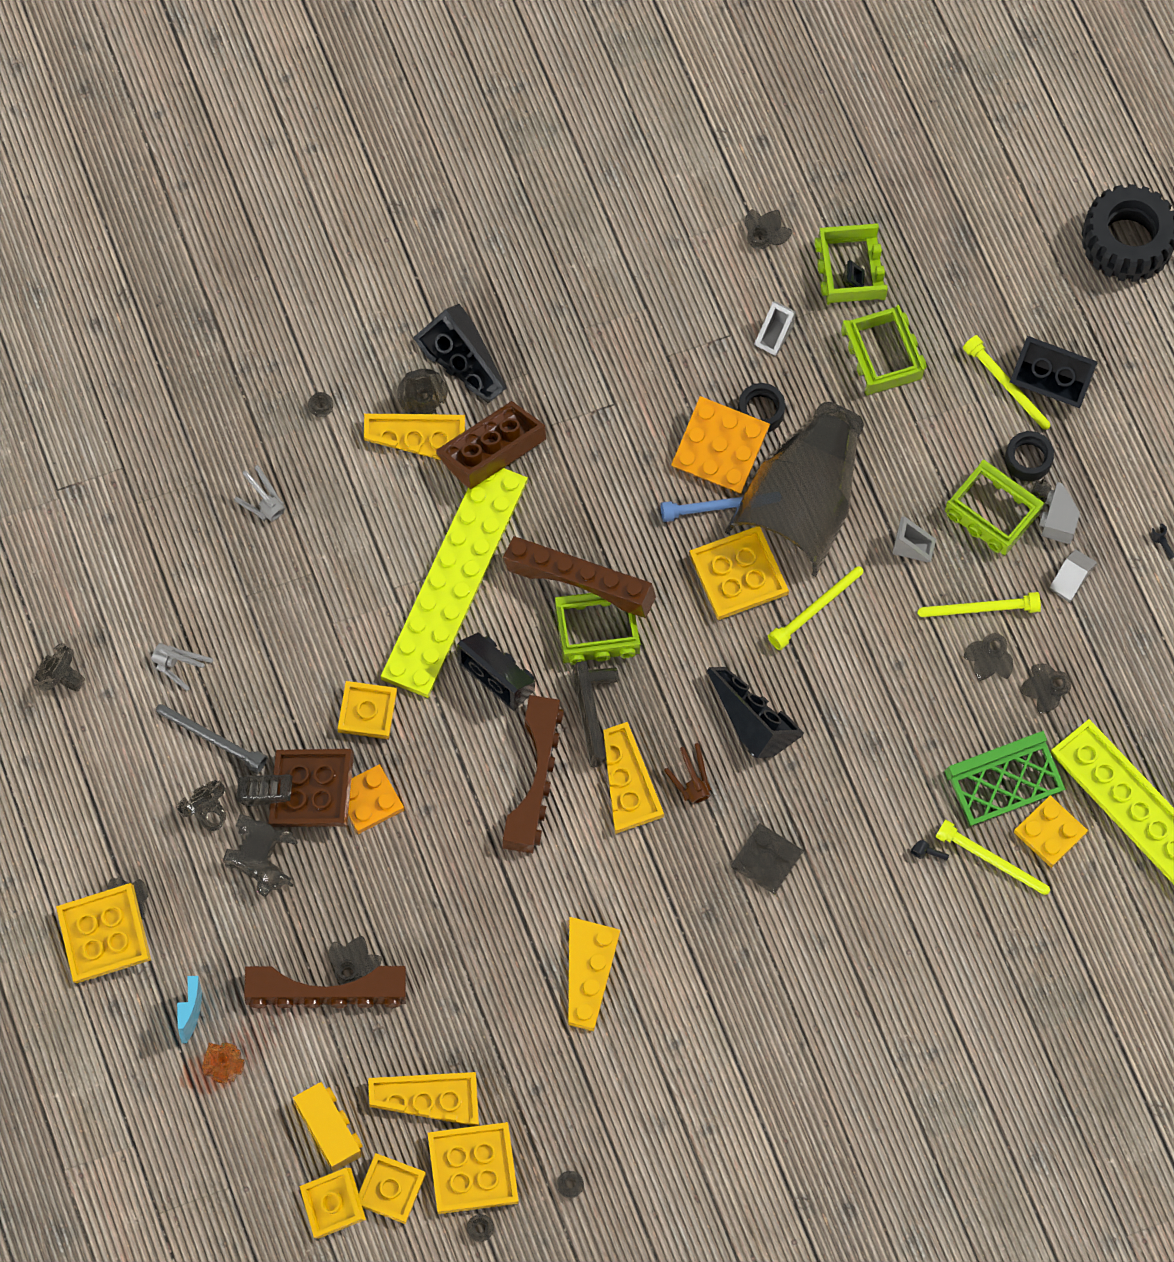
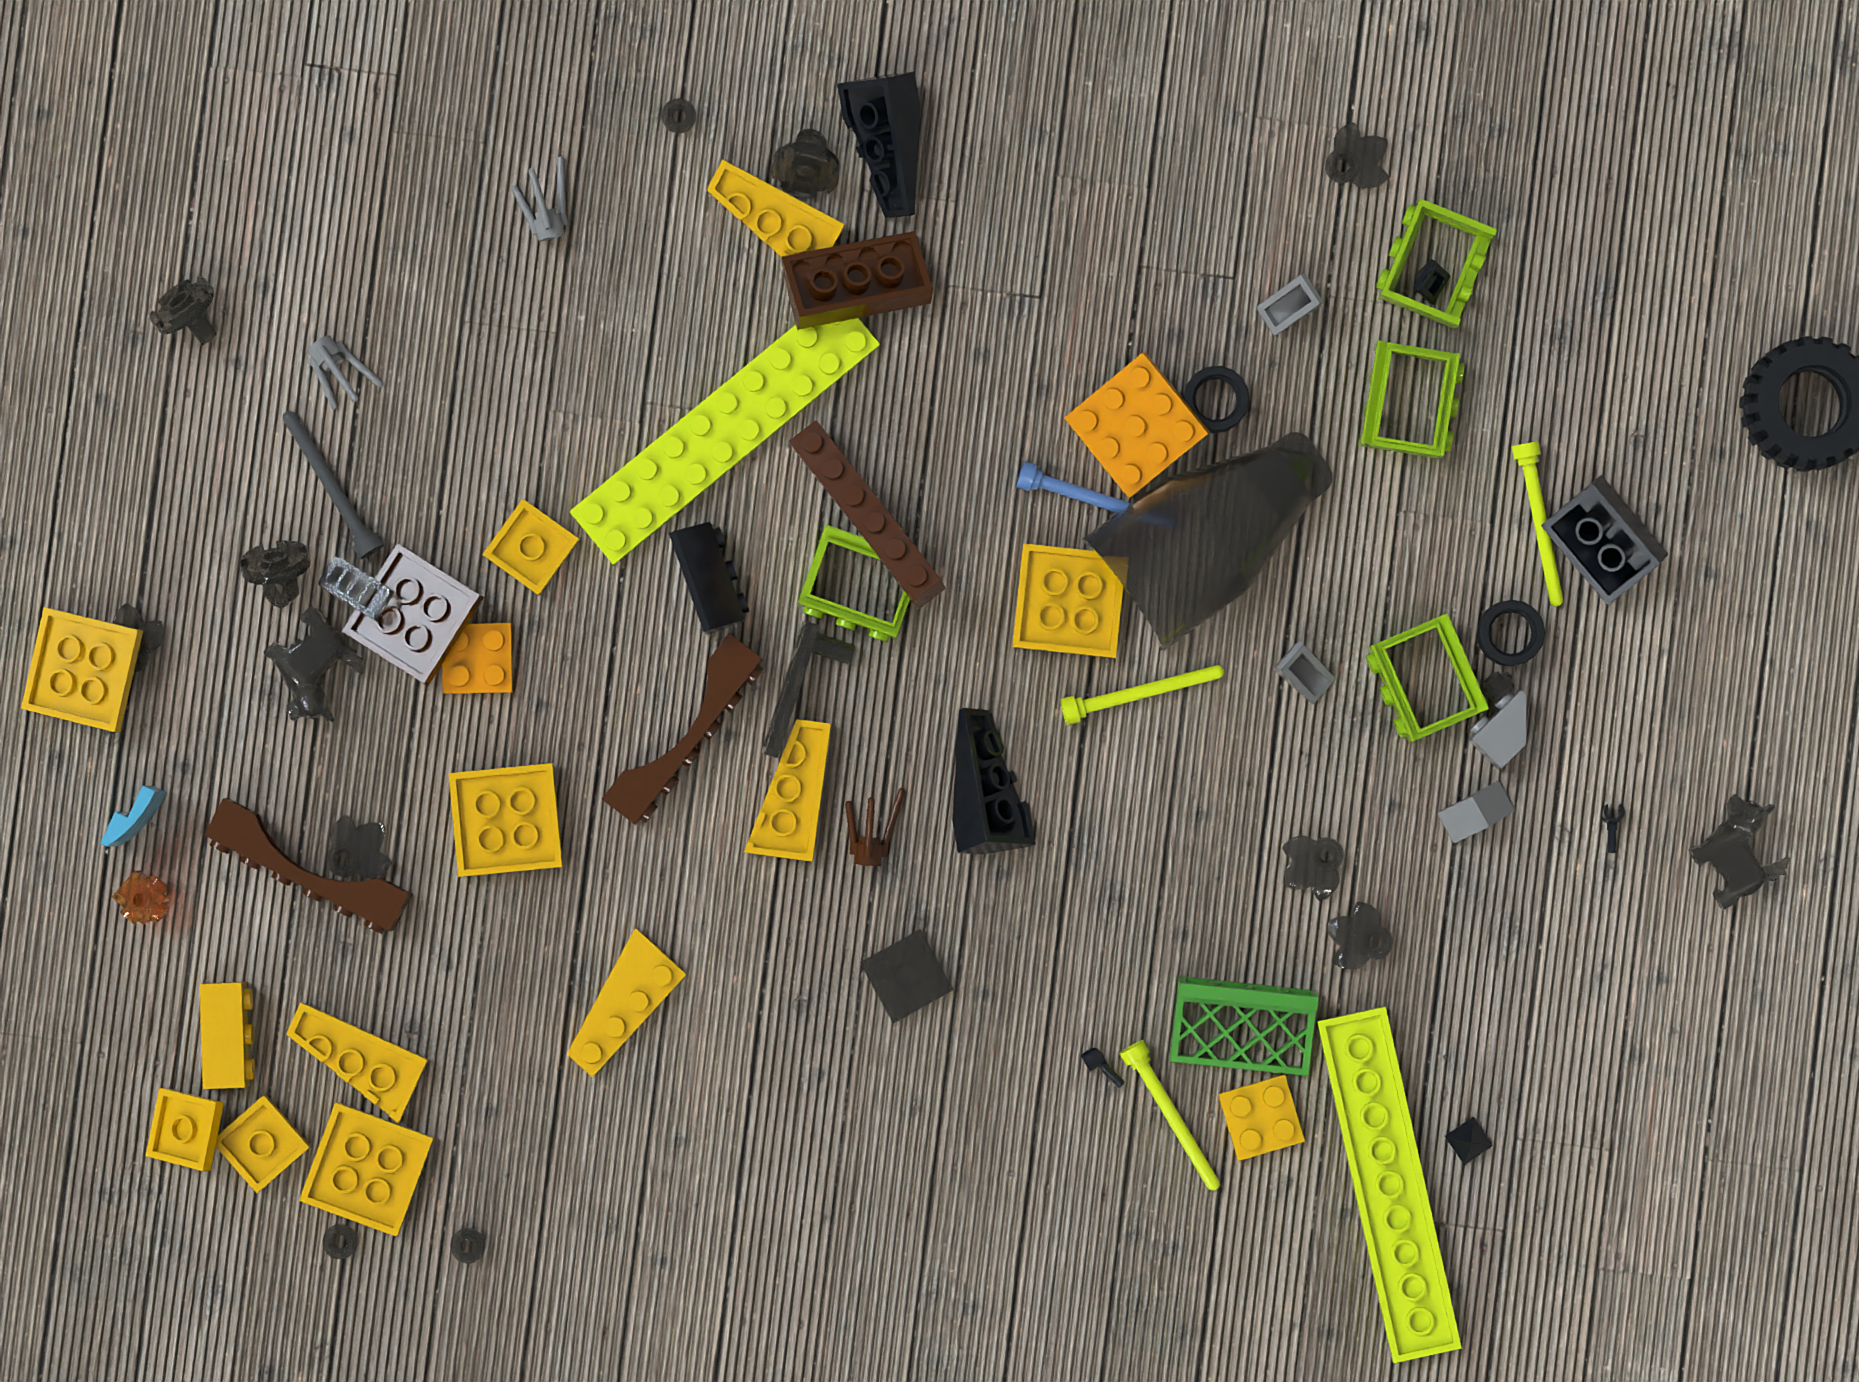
camera: 30 degrees right, 20 degrees up
(444, 890) = (505, 820): none -> yellow plate
(1029, 602) = (1400, 821): neon yellow piece -> none

